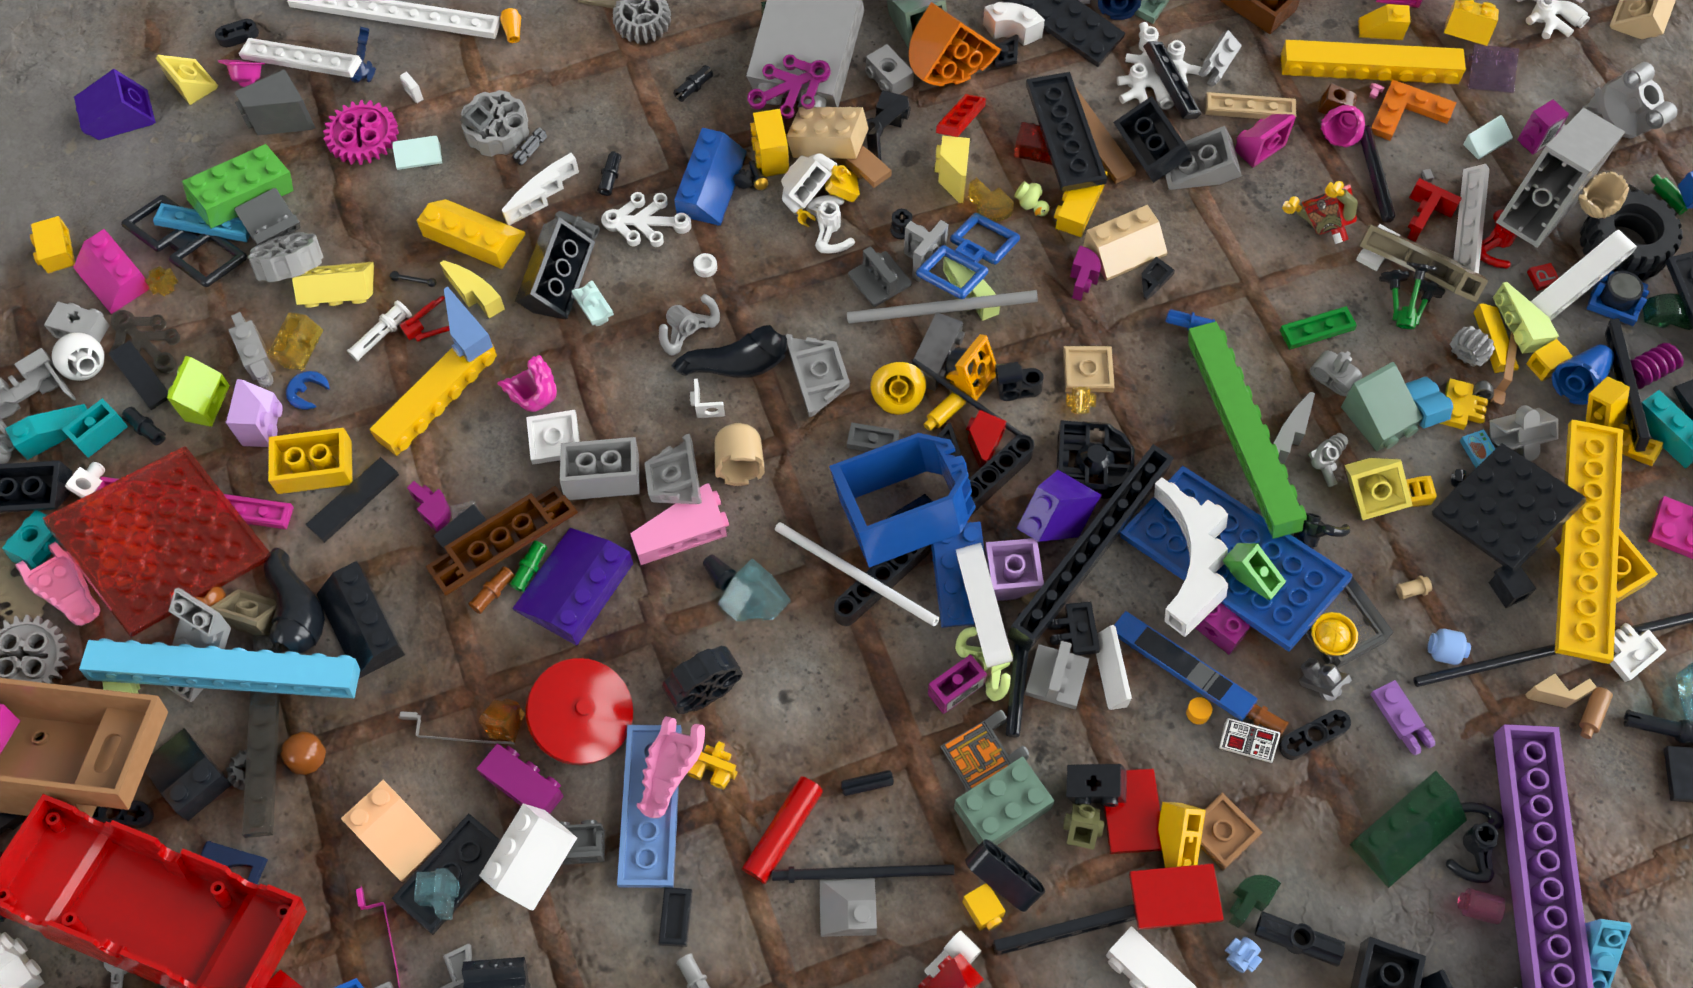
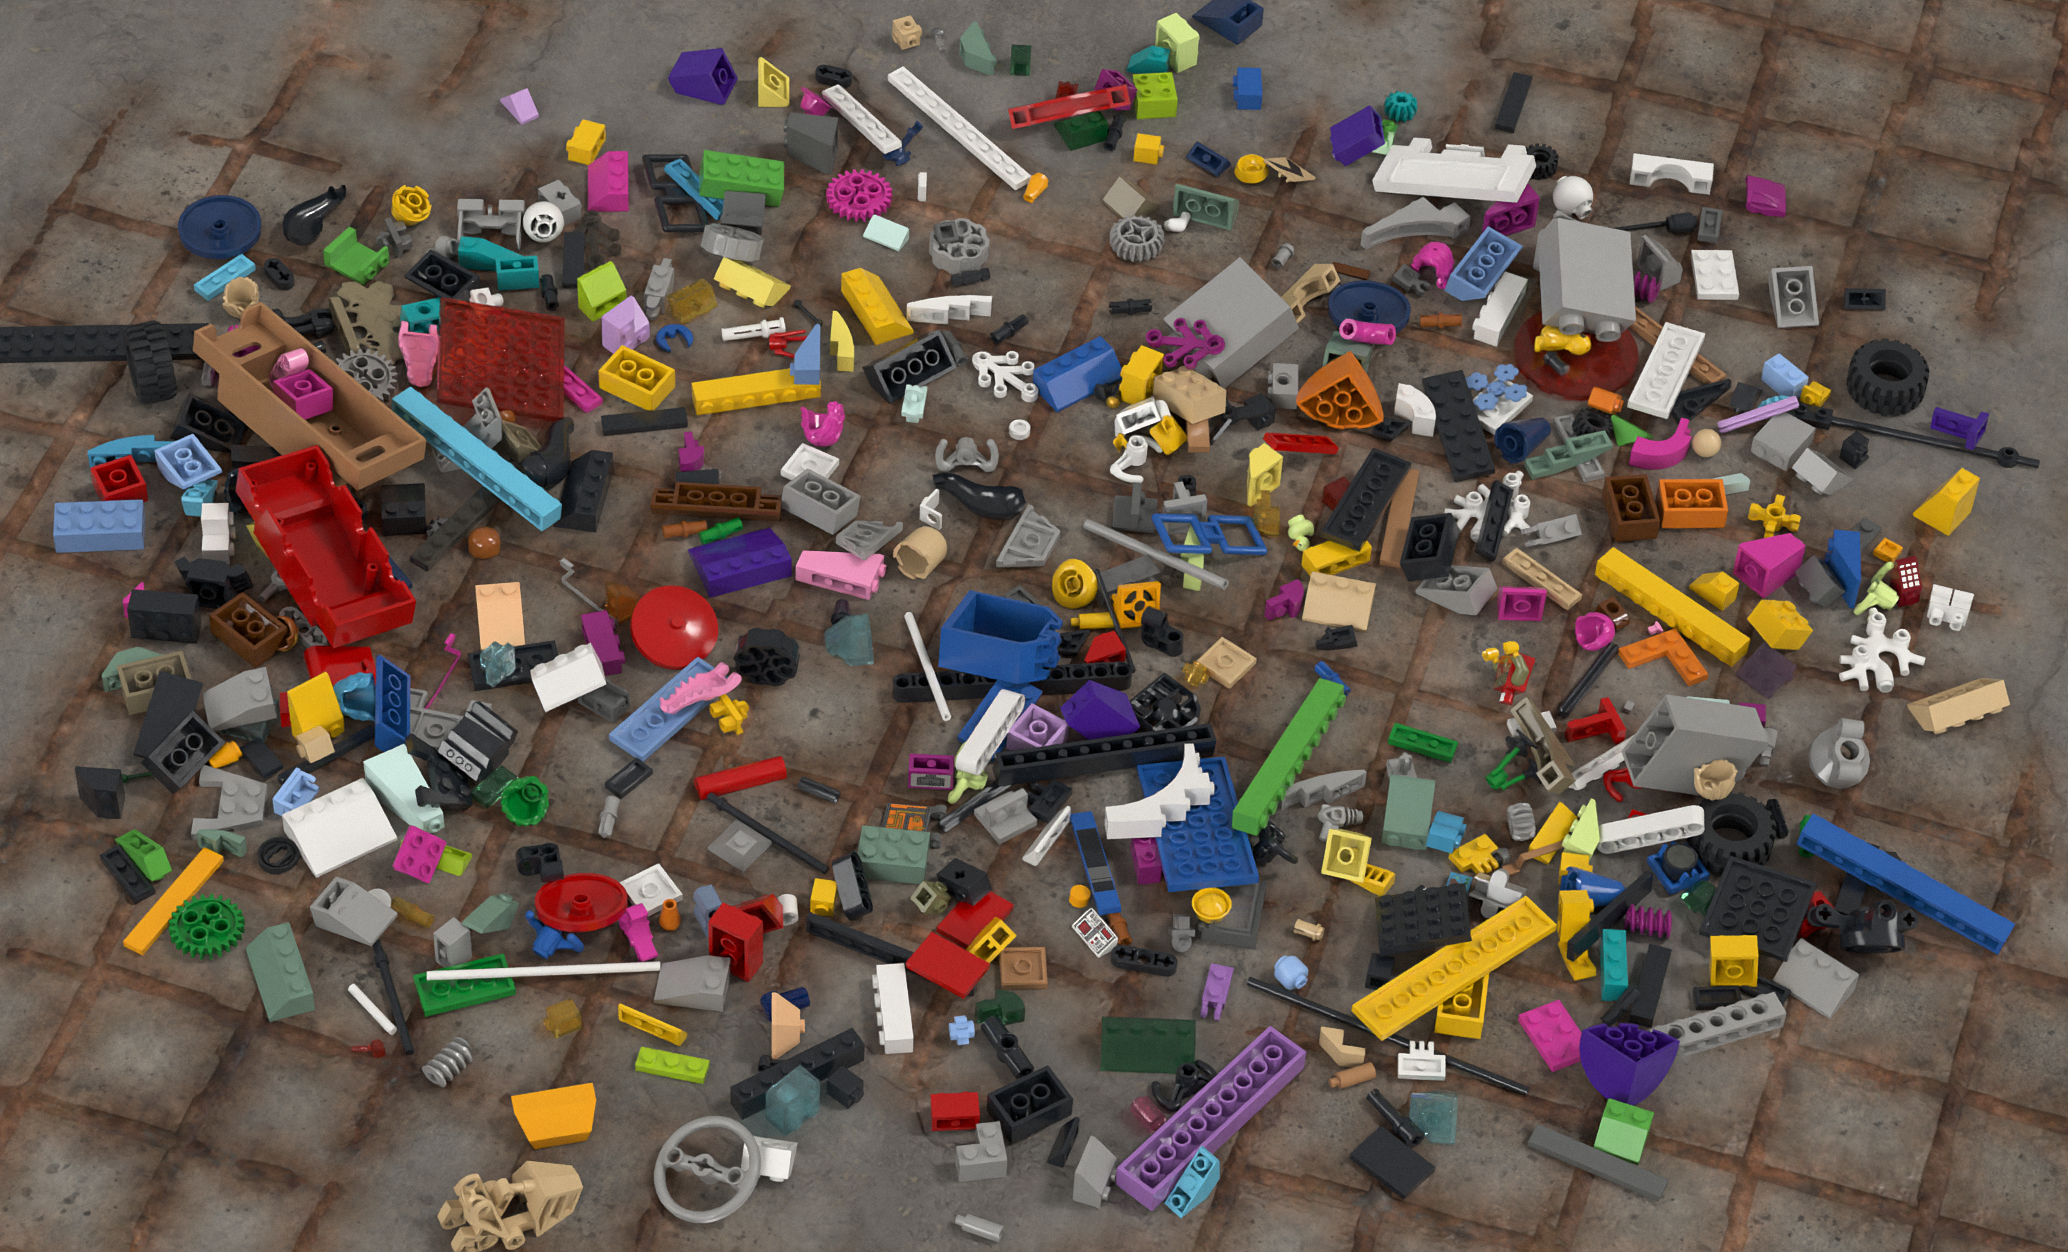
camera: 35 degrees right, 15 degrees down
(161, 281) = (638, 209): clear yellow gear -> none
(1254, 569) = (1193, 830): bright green slope -> none

